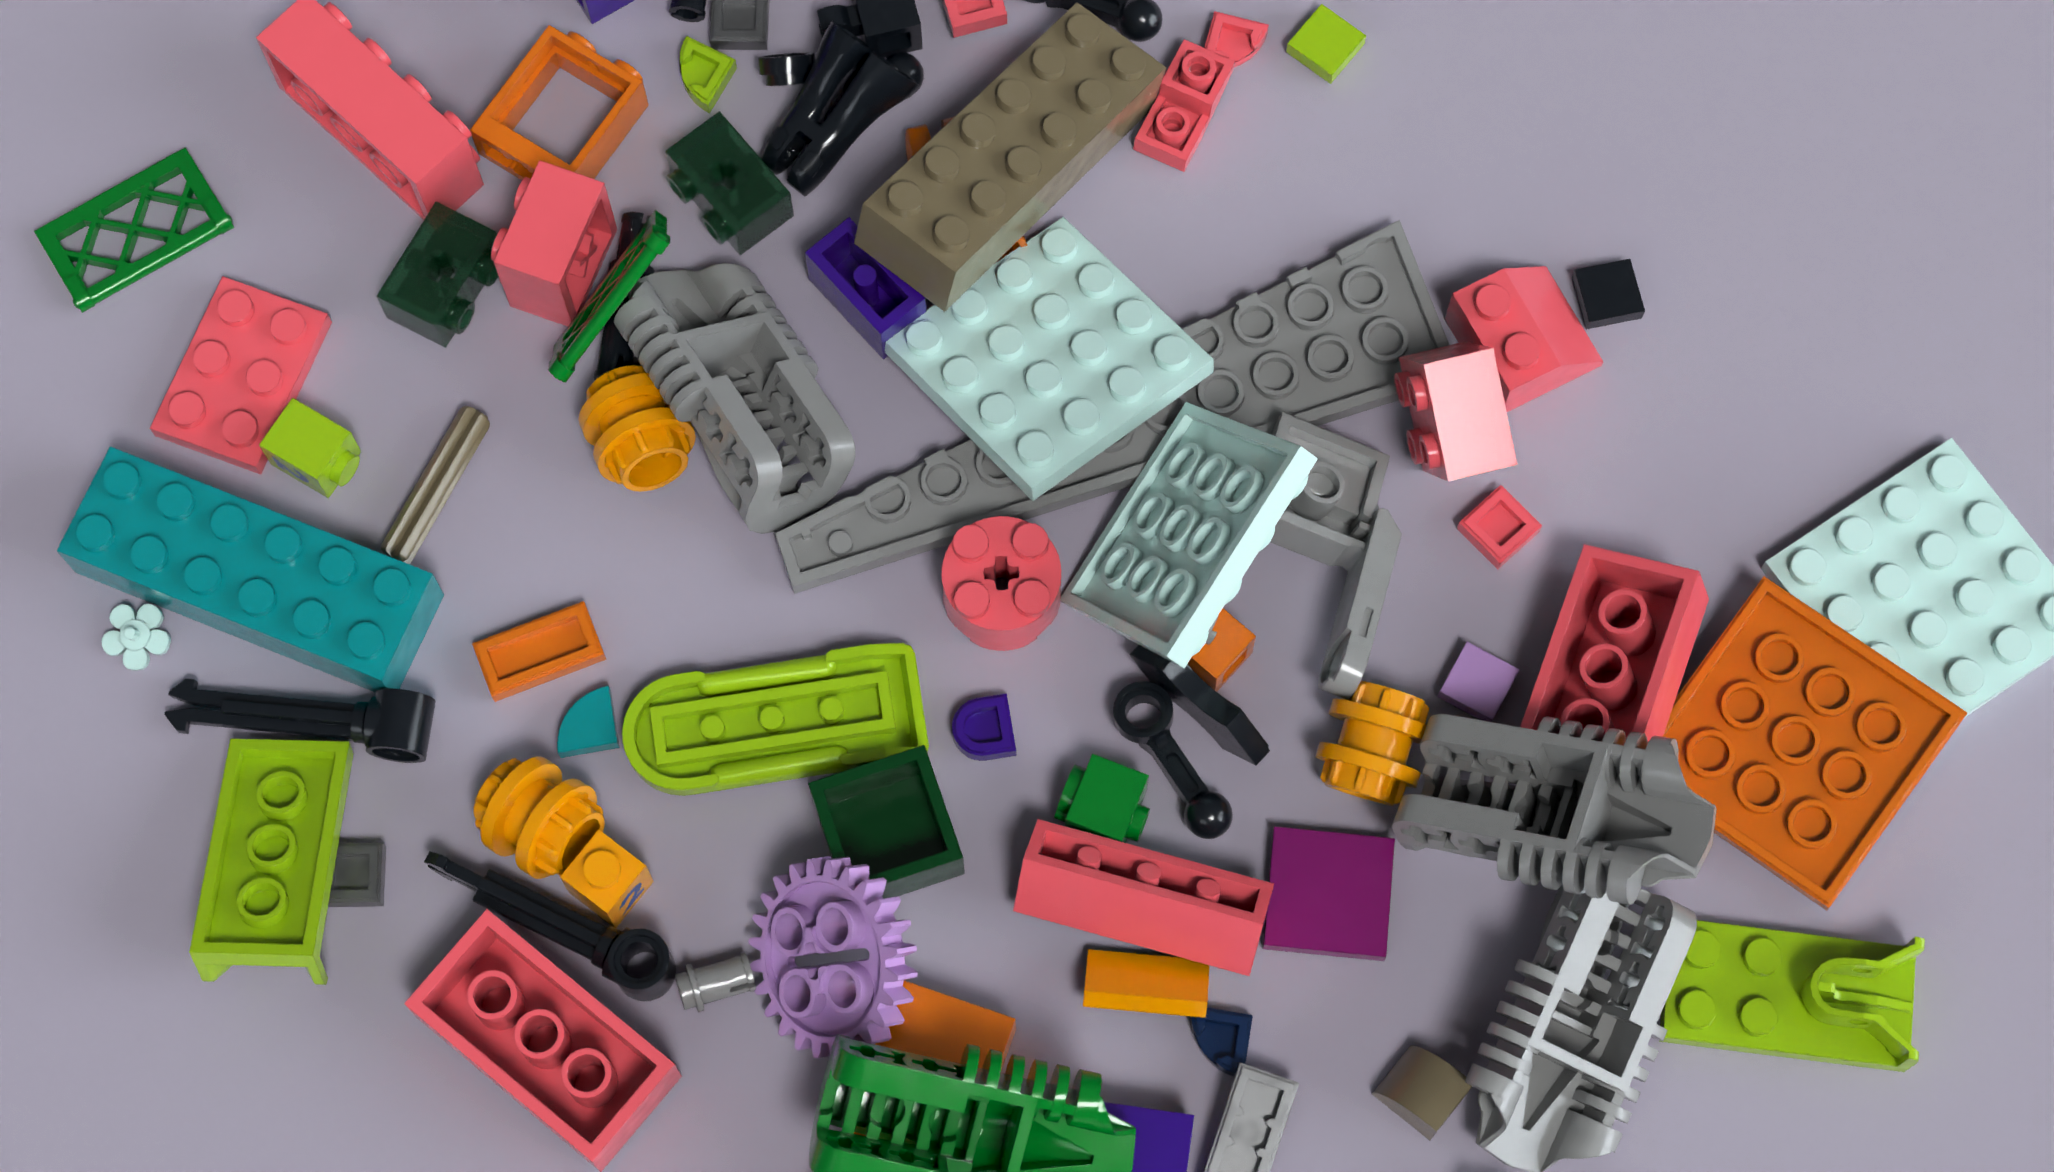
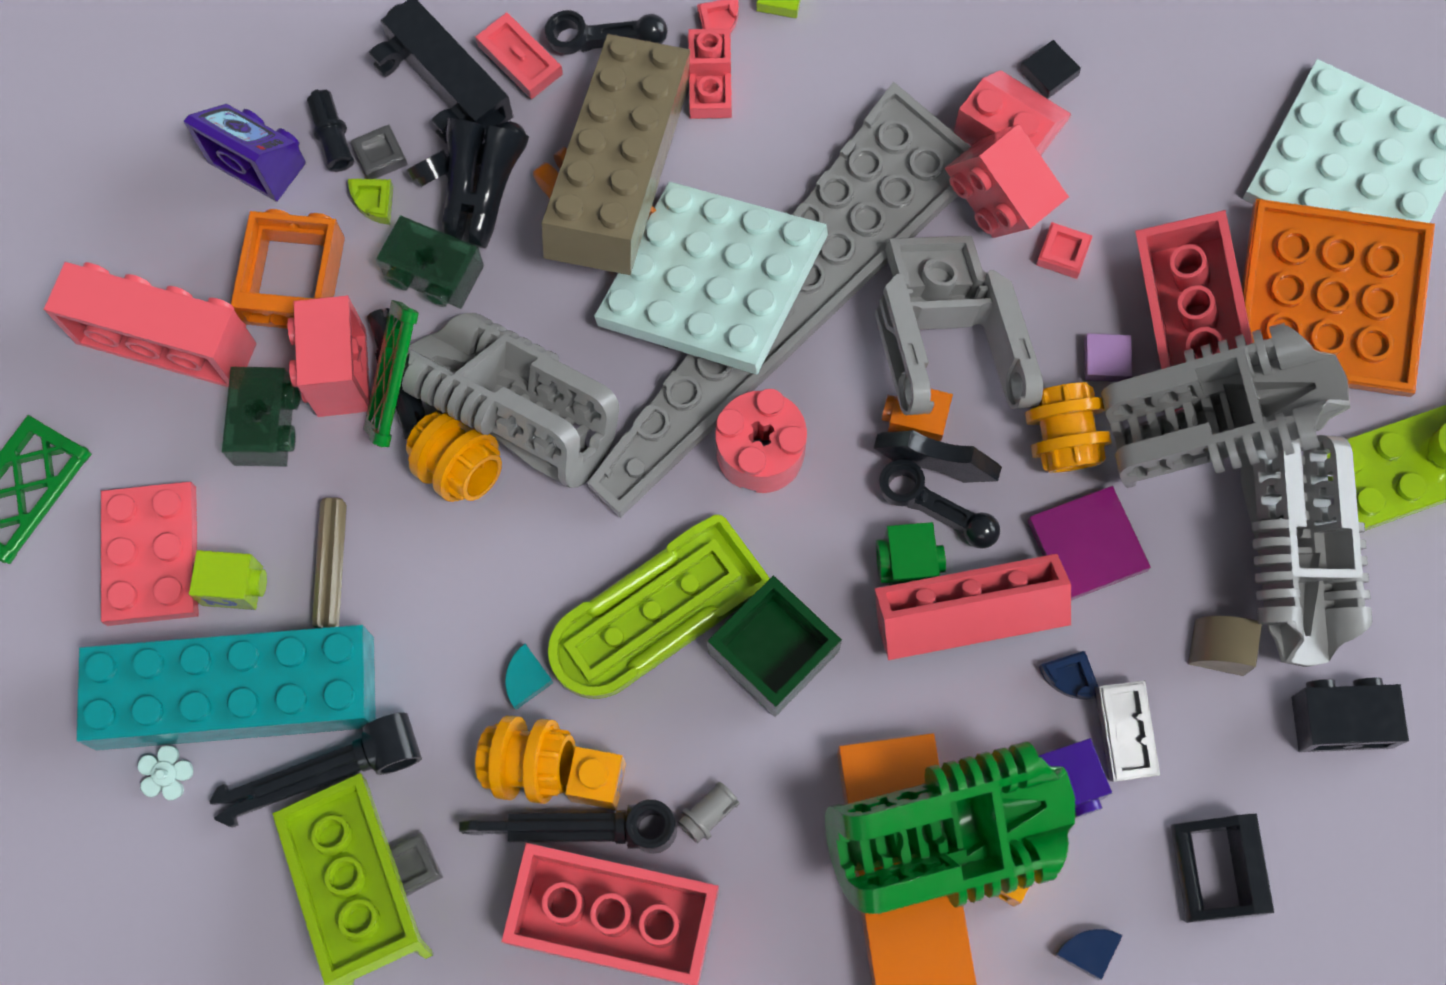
camera: 25 degrees left, 0 degrees up
(539, 651) = (462, 643): orange tile -> none
(826, 910) = (762, 716): lavender gear -> none
(861, 287) = (561, 288): dark purple brick -> none
(984, 728) = (799, 546): dark purple tile -> none
(1146, 983) = (1003, 665): light orange tile -> none
(1188, 532) = (879, 342): light aqua plate -> none

